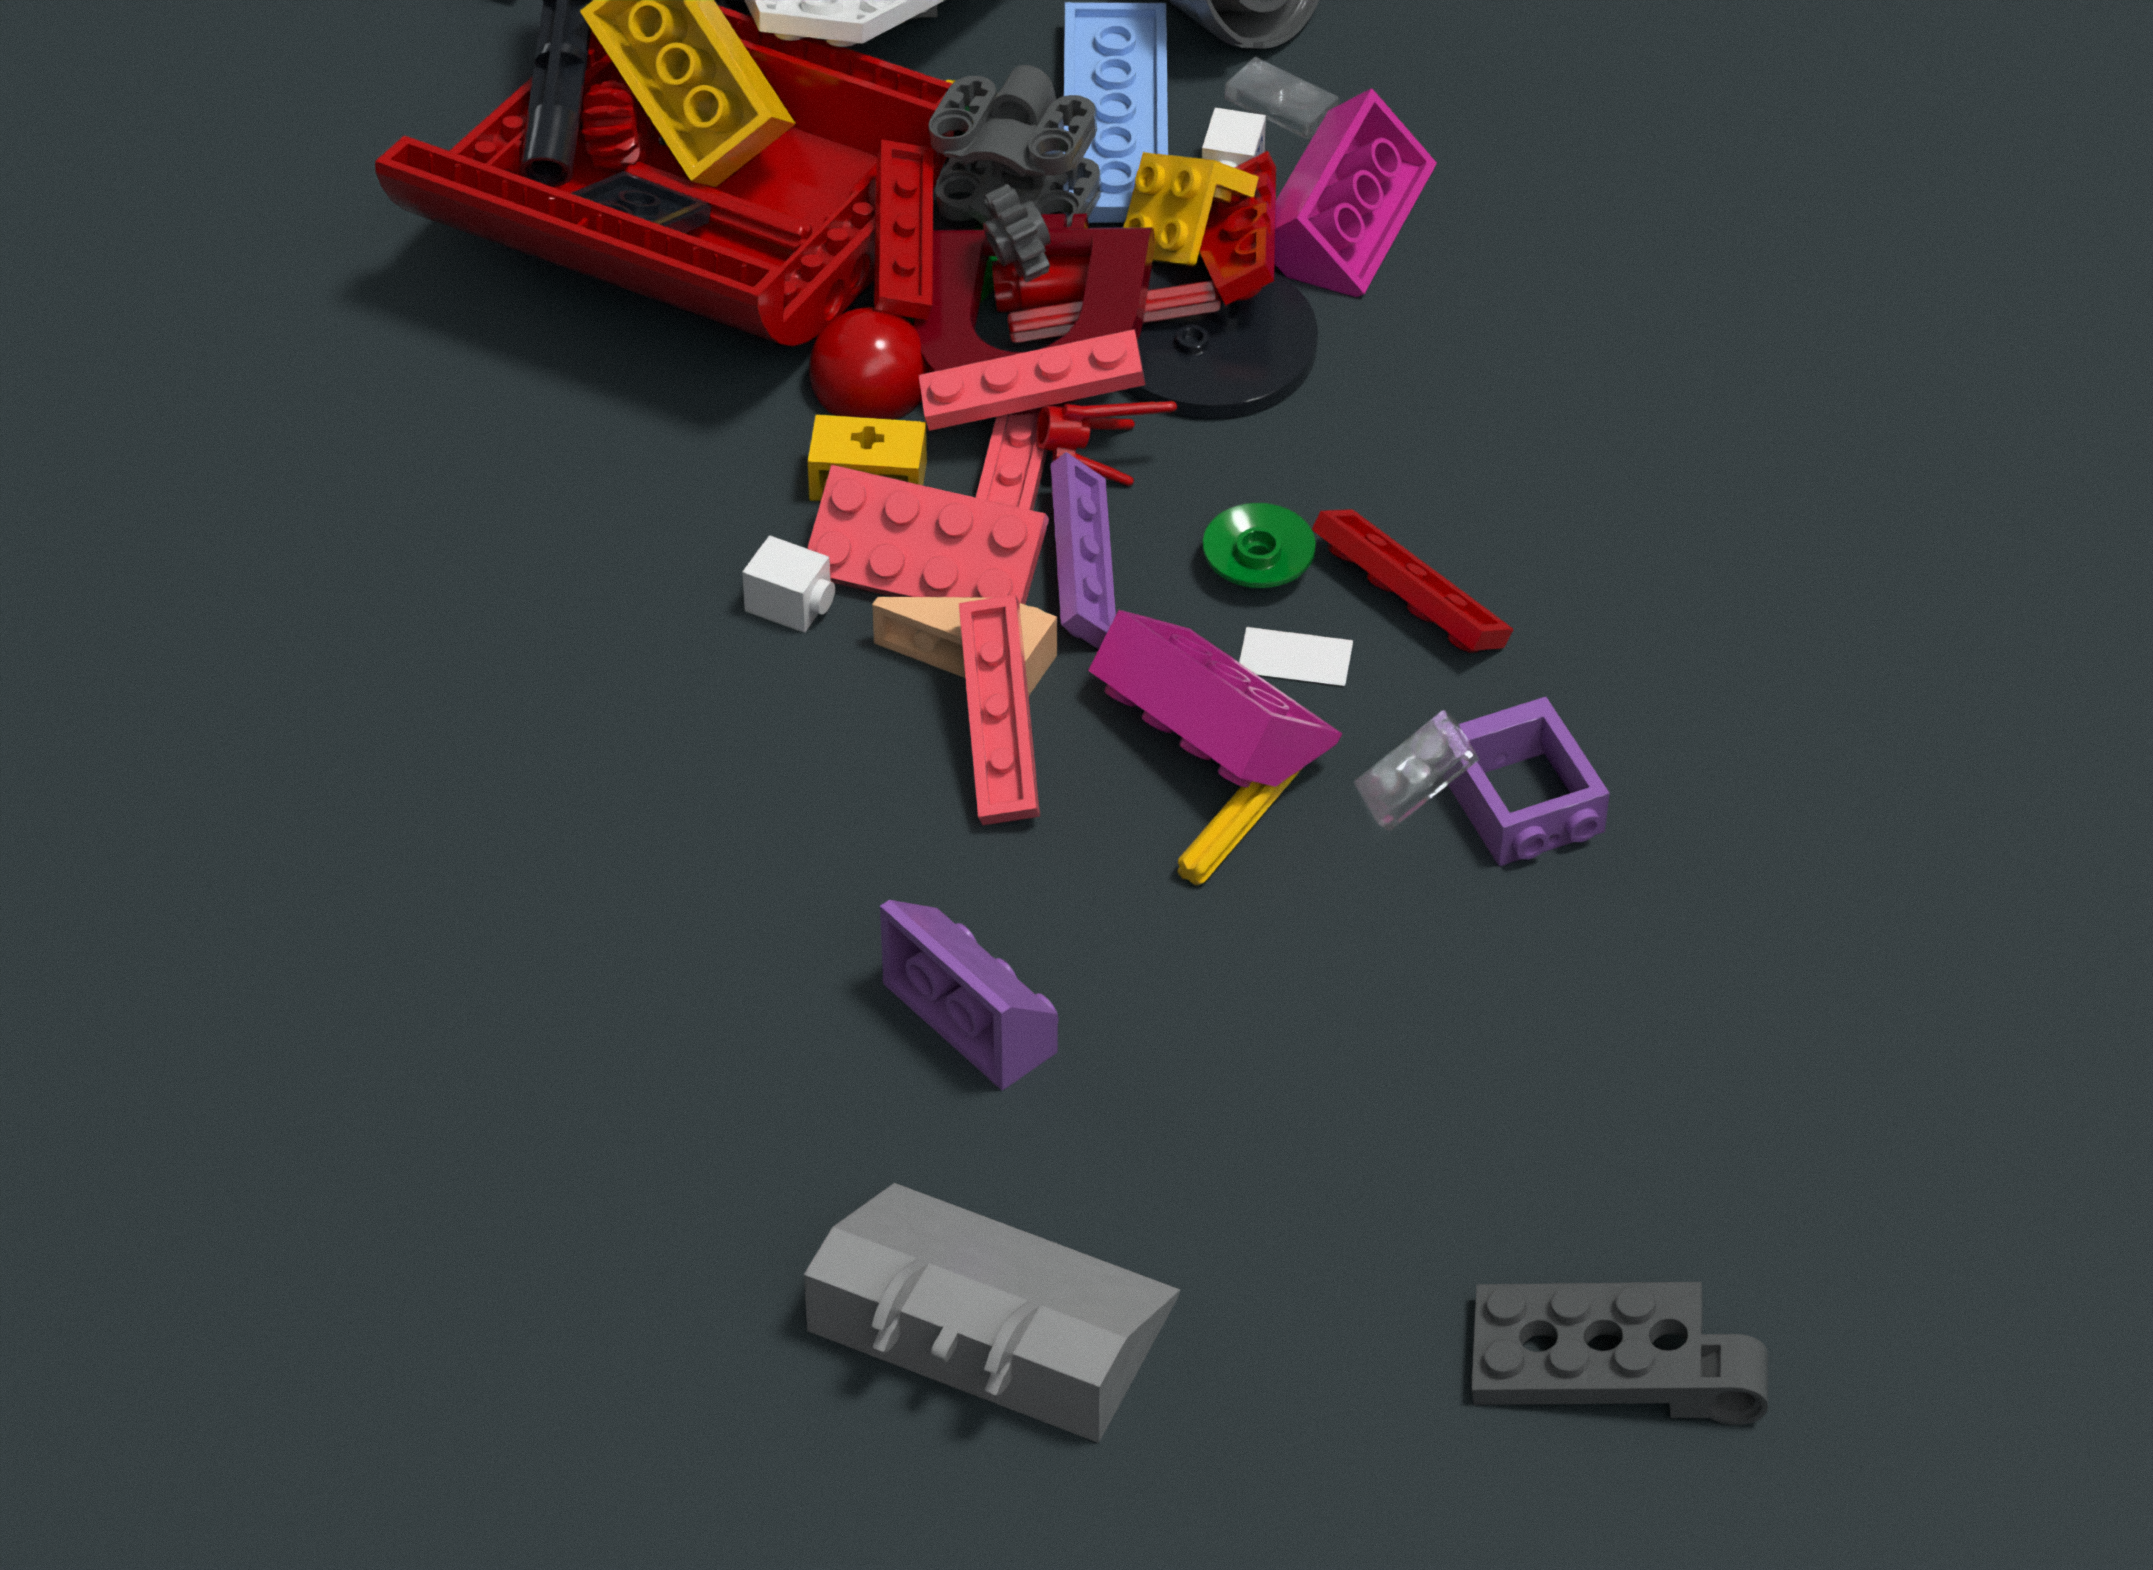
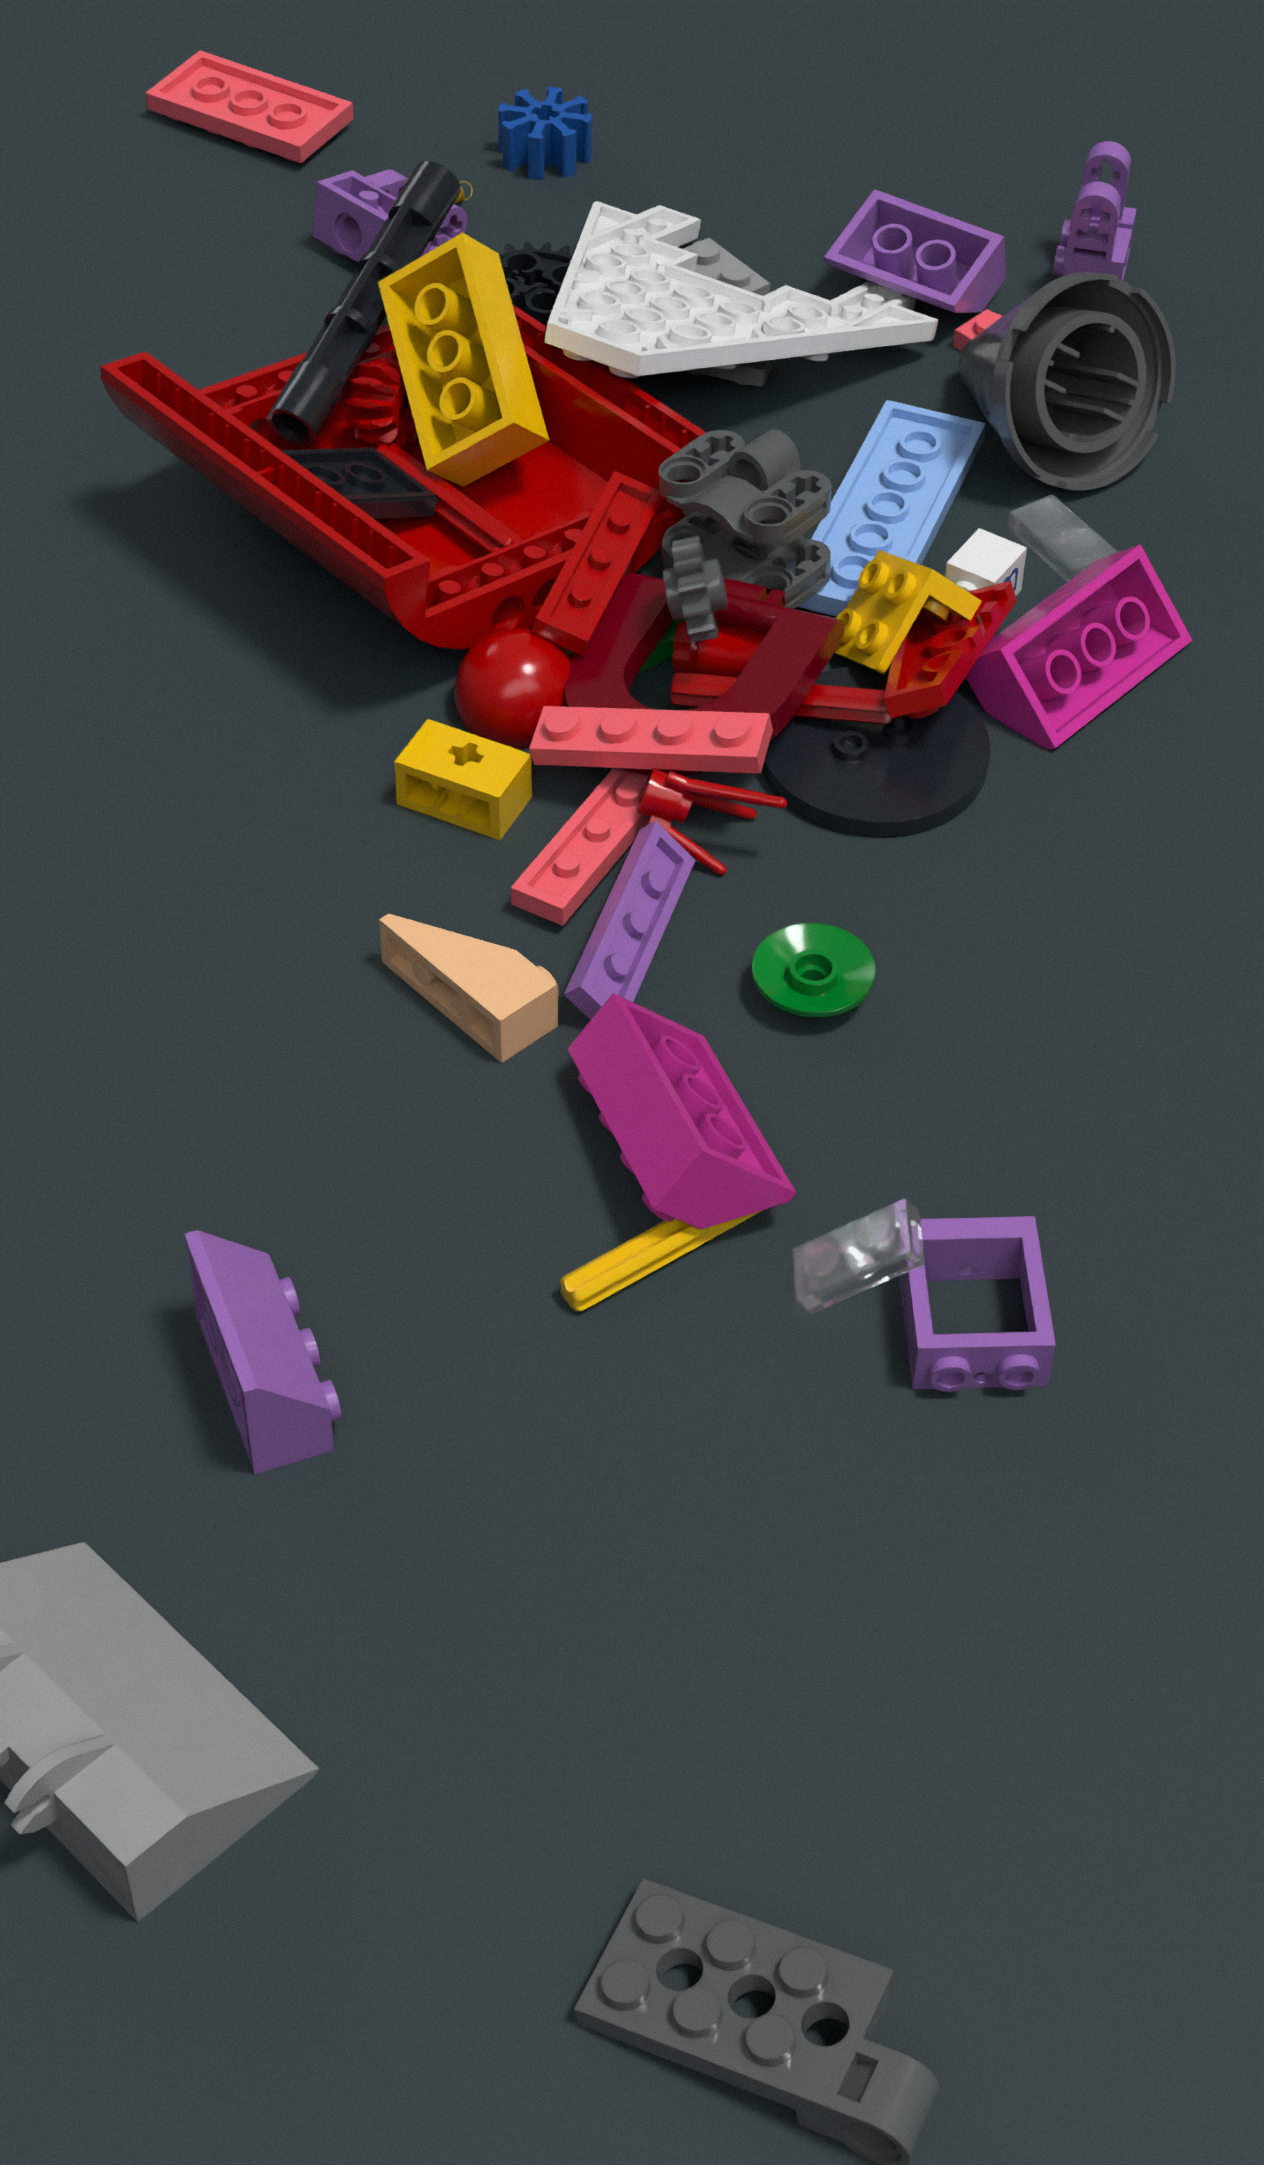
camera: 20 degrees right, 0 degrees up
(787, 584) = (318, 877): white brick -> none
(924, 539) = (470, 872): coral plate -> none
(999, 710) = (447, 1064): coral plate -> none
(1296, 656) = (803, 1097): white sticker -> none
(1400, 571) = (959, 1052): red plate -> none

